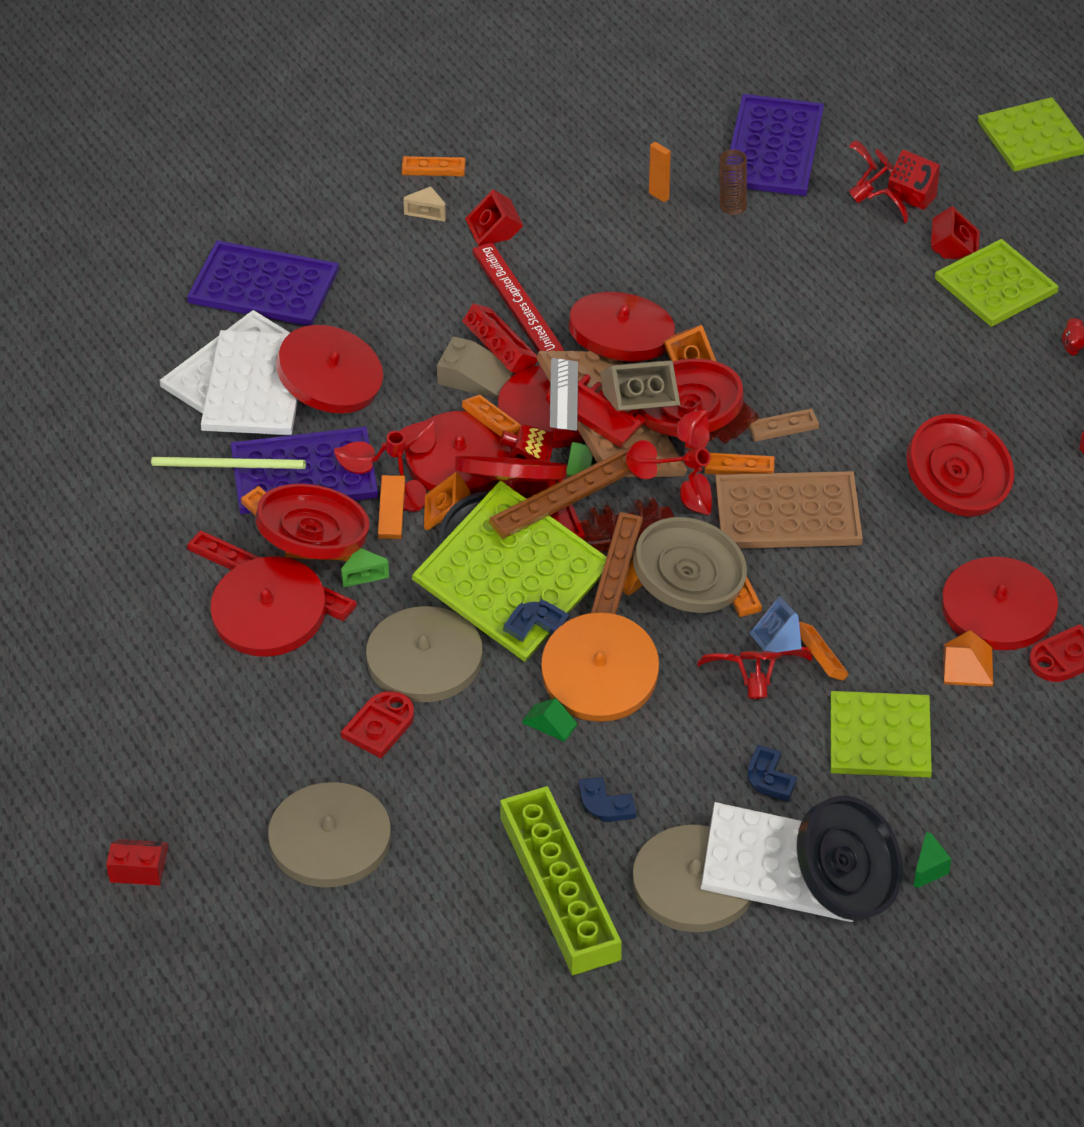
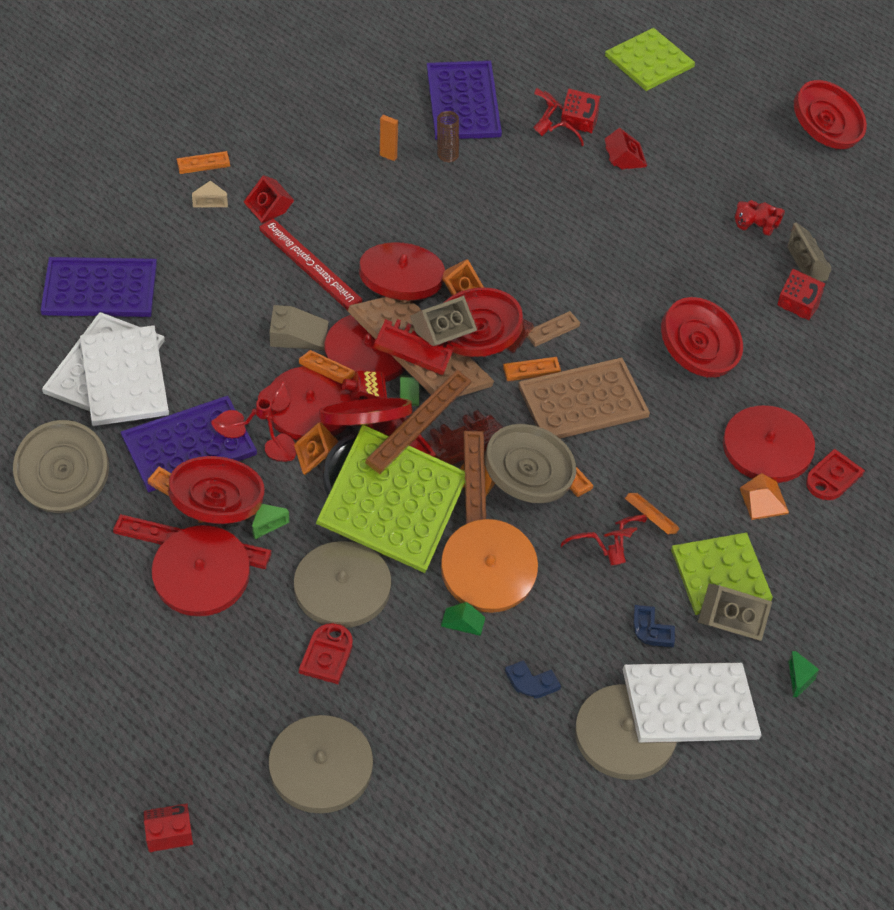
camera: 20 degrees left, 5 degrees up
(150, 465) = (61, 466): none -> dark tan container
(228, 462) = (149, 446): yellowish green piece -> none
(329, 369) = (182, 352): red container -> none
(391, 507) = (272, 461): orange tile -> none
(499, 338) = (310, 299): red brick -> none
(534, 613) = (426, 531): dark blue plate -> none
(560, 881) = (525, 761): lime brick -> none
(564, 394) = (387, 340): light grey sticker -> none
(694, 431) = (497, 352): red plant -> none
(778, 628) = (618, 503): medium blue slope -> none
(849, 858) = (748, 689): black container -> none
(875, 776) = (735, 611): none -> dark tan slope
(996, 282) = (668, 182): lime plate -> none

